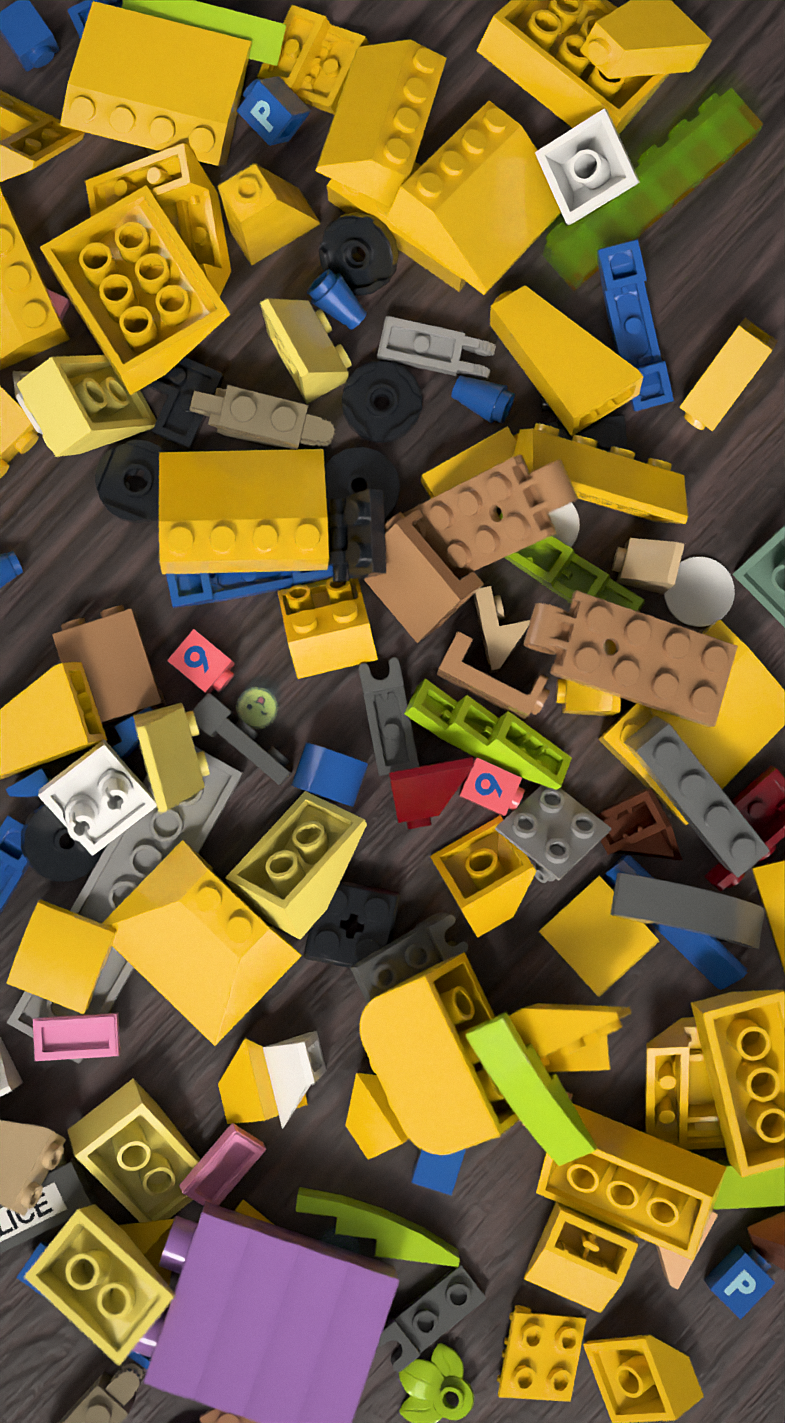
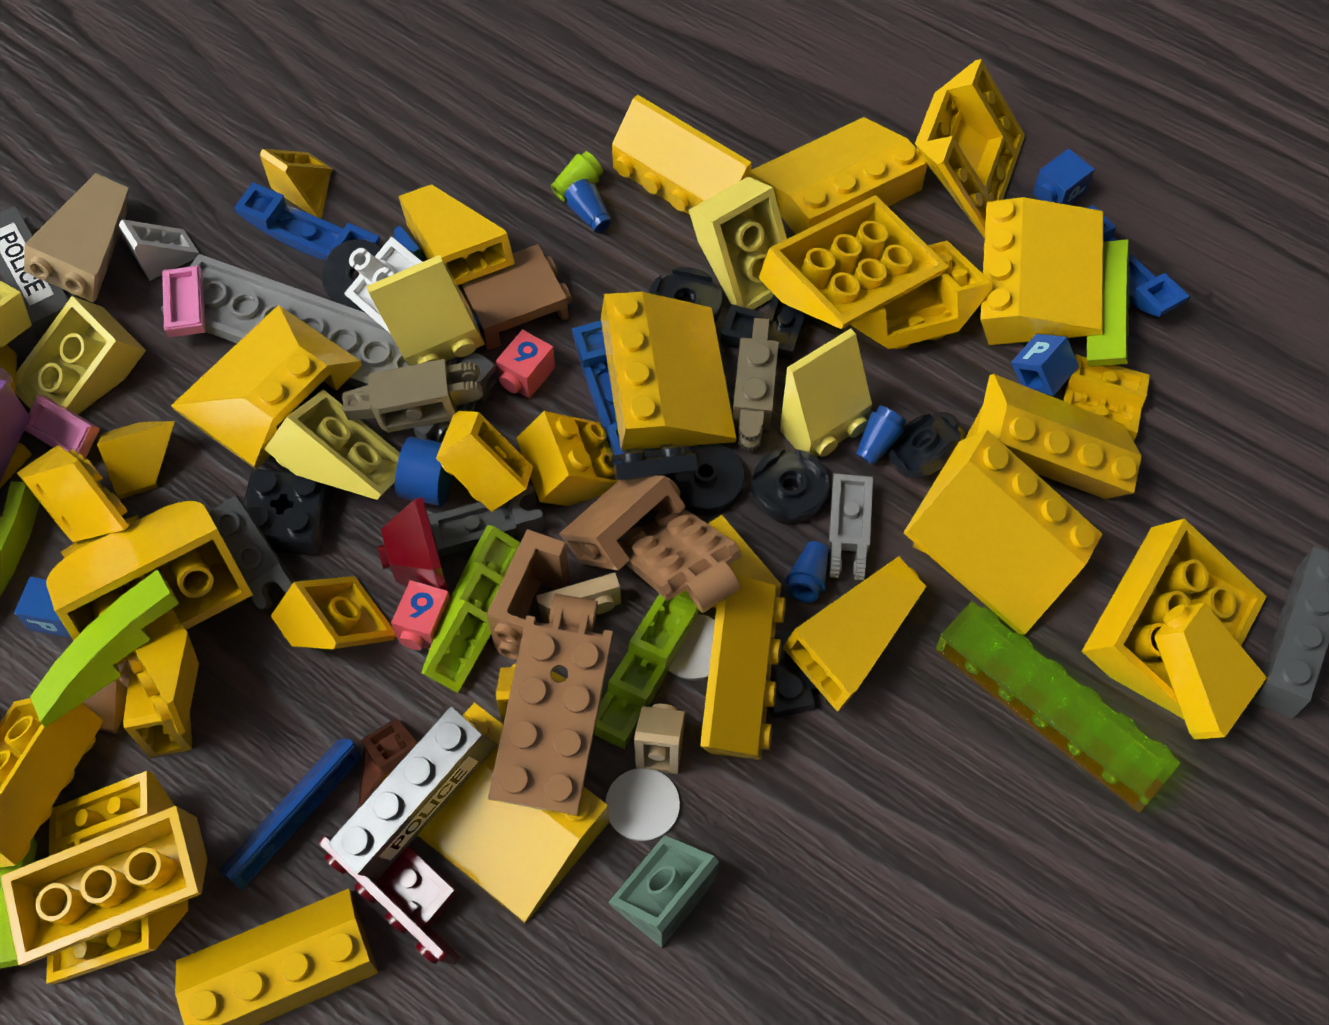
camera: 85 degrees right, 25 degrees down
(61, 956) = (253, 280): yellow slope -> none
(249, 782) = (414, 394): none -> dark tan hinge
(257, 707) = (493, 411): clear light blue tile -> none
(264, 212) = (943, 348): yellow slope -> none
(292, 1070) = (147, 475): white slope -> none
(329, 1138) = (72, 494): none -> yellow slope
(339, 710) = (483, 460): none -> yellow slope
(553, 831) = (378, 672): light grey hinge -> none
(587, 166) = (1056, 619): white slope -> none
(595, 942) = (273, 736): yellow slope -> none
(632, 322) = (909, 701): blue slope -> none
(688, 909) = (295, 814): dark grey slope -> none
(727, 375) = (878, 799): yellow slope -> none

